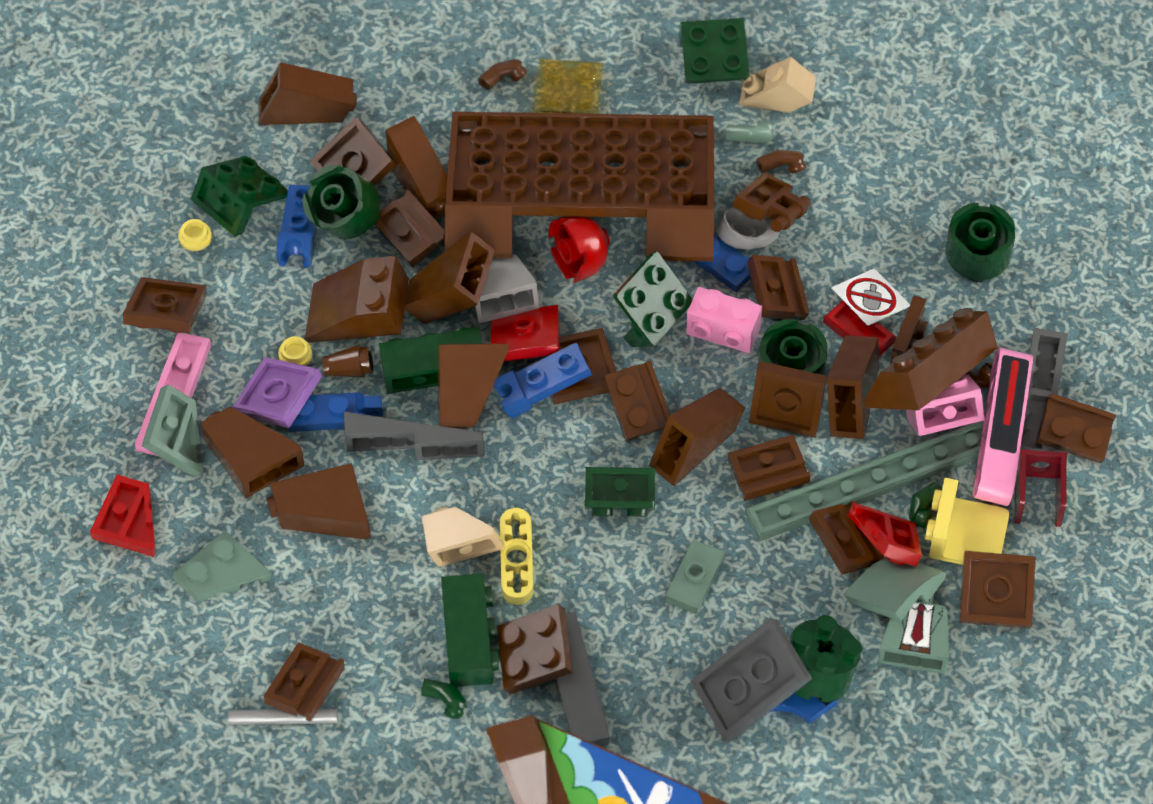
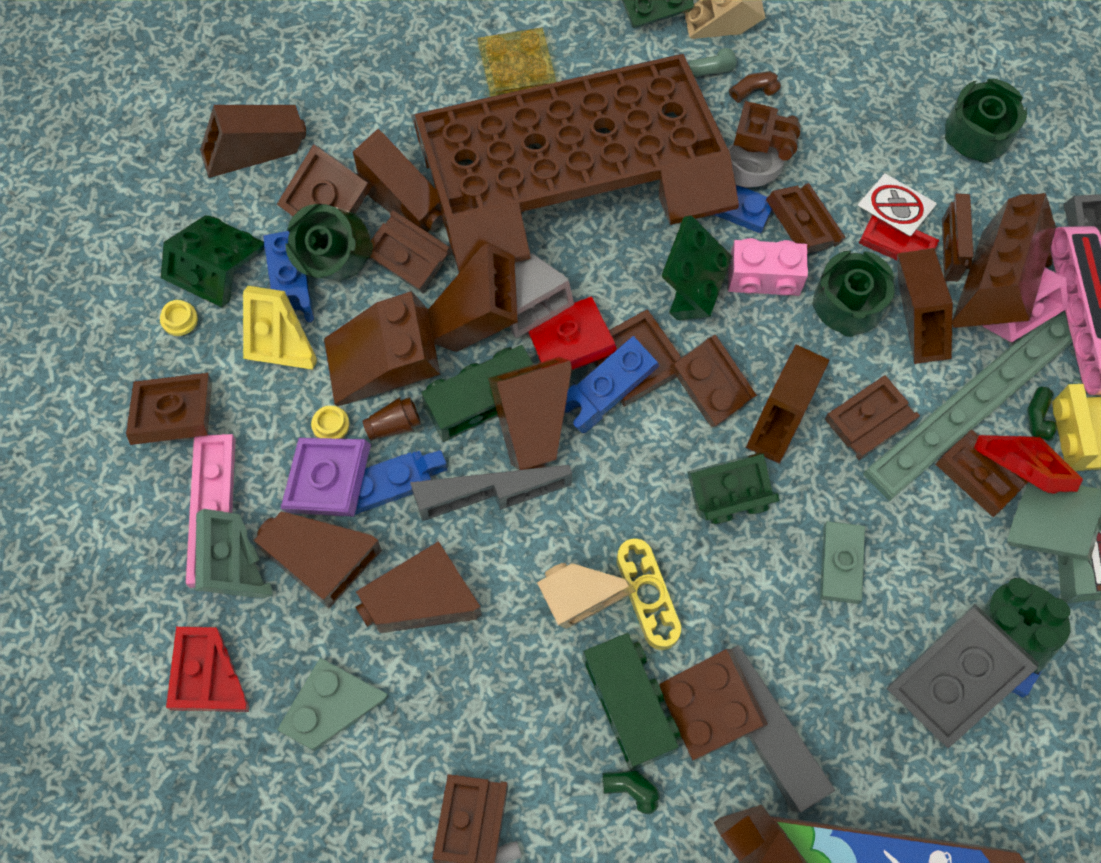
camera: 20 degrees left, 10 degrees up
(271, 263) = (273, 330): none -> light yellow wing
(499, 70) = (441, 58): reddish brown arm -> none
(579, 246) = (592, 228): red cylinder -> none
(787, 399) = (871, 338): reddish brown plate -> none

